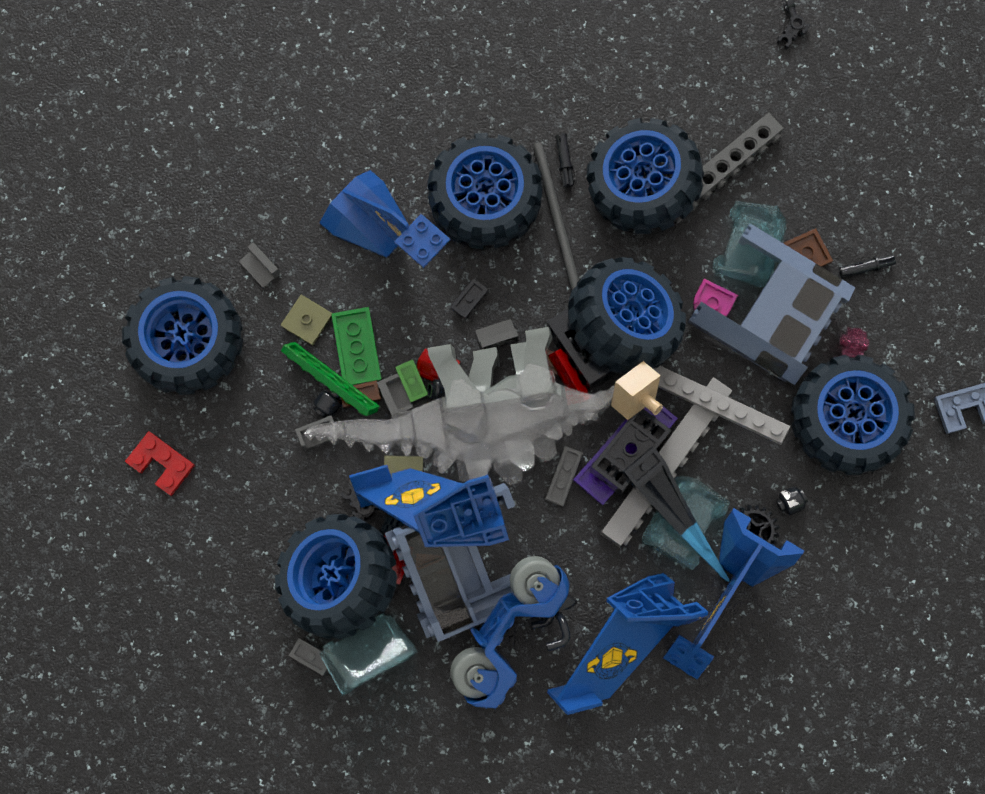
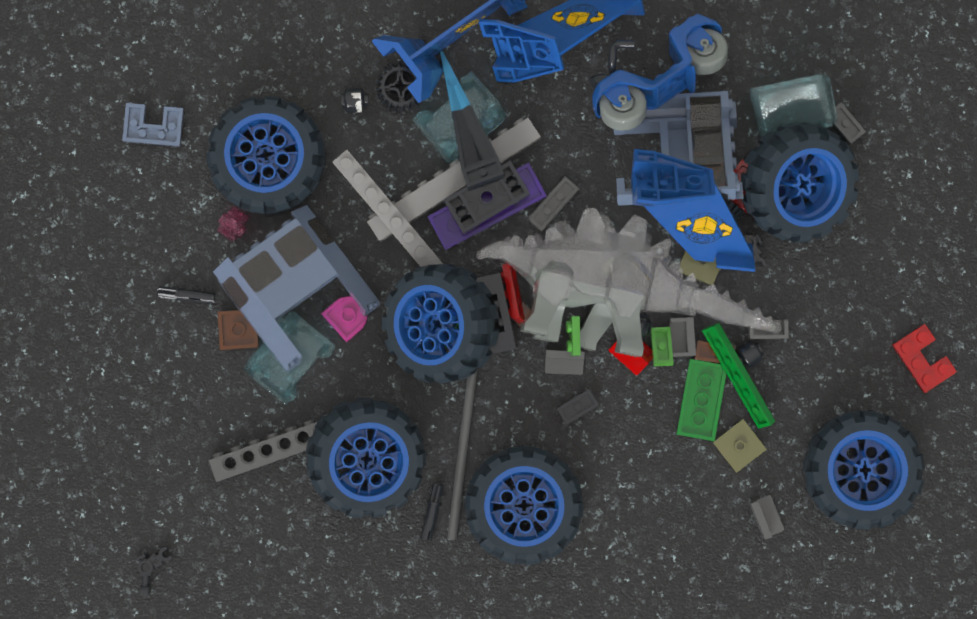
camera: 160 degrees left, 10 degrees up
(371, 219) = (640, 522): blue piece -> none
(495, 345) = (573, 329): none -> bright green plate
(637, 391) = (462, 242): tan brick -> none

